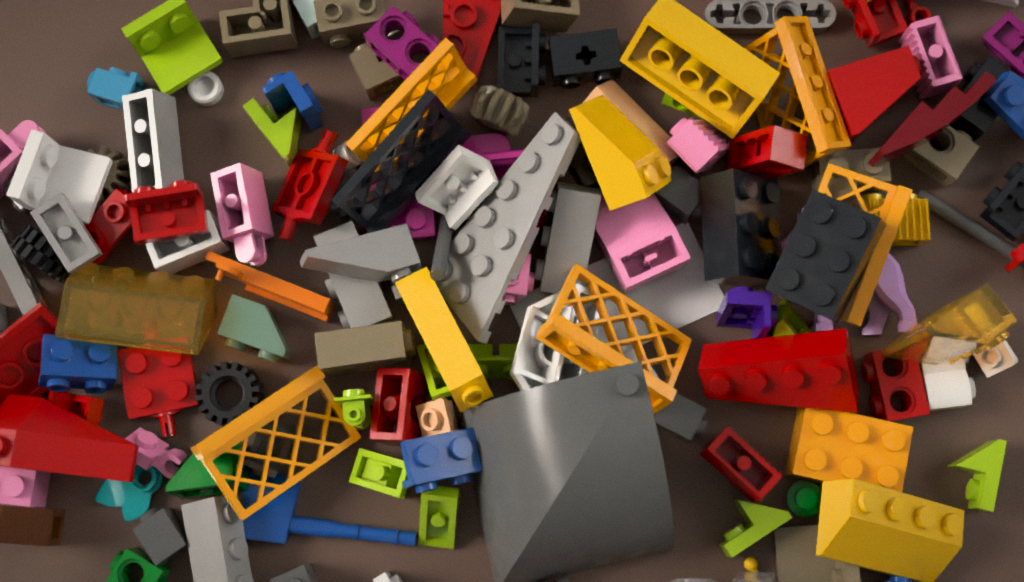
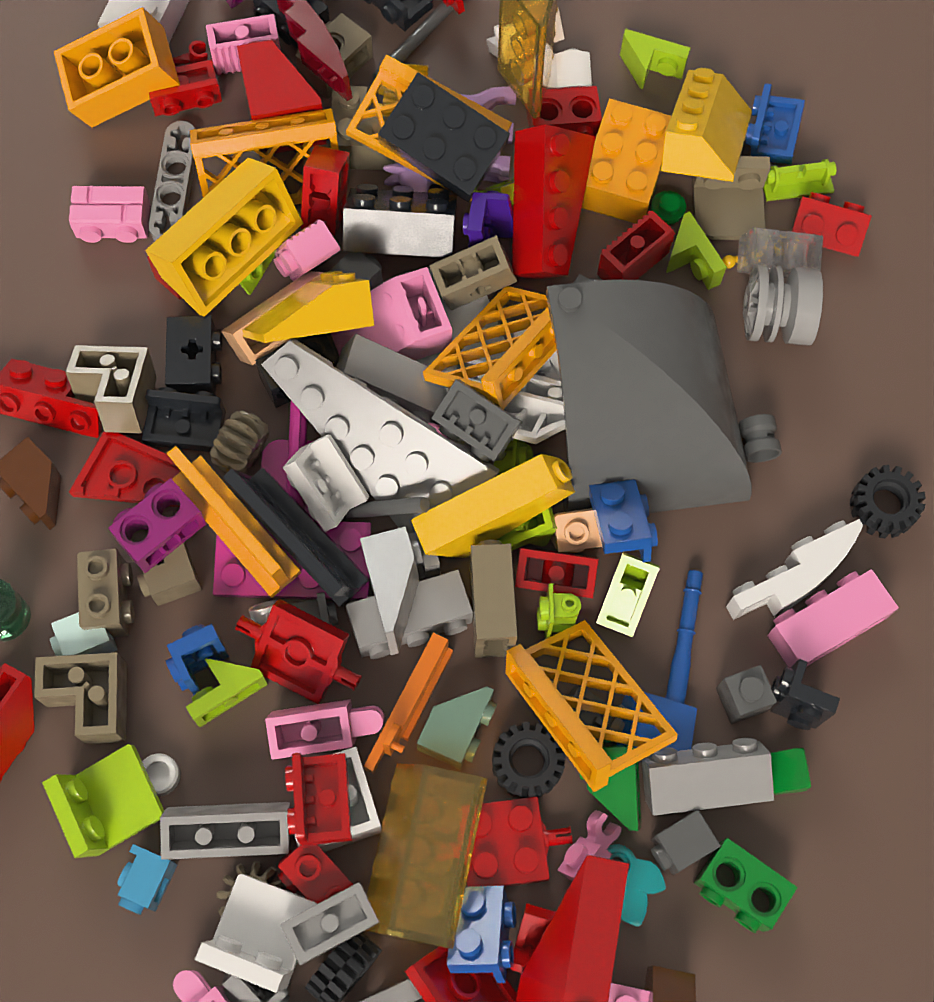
camera: 90 degrees left, 10 degrees down
(439, 517) = (678, 543): lime slope -> none
(523, 315) = (477, 421): none -> dark grey bracket
(694, 304) = (473, 273): none -> dark tan brick

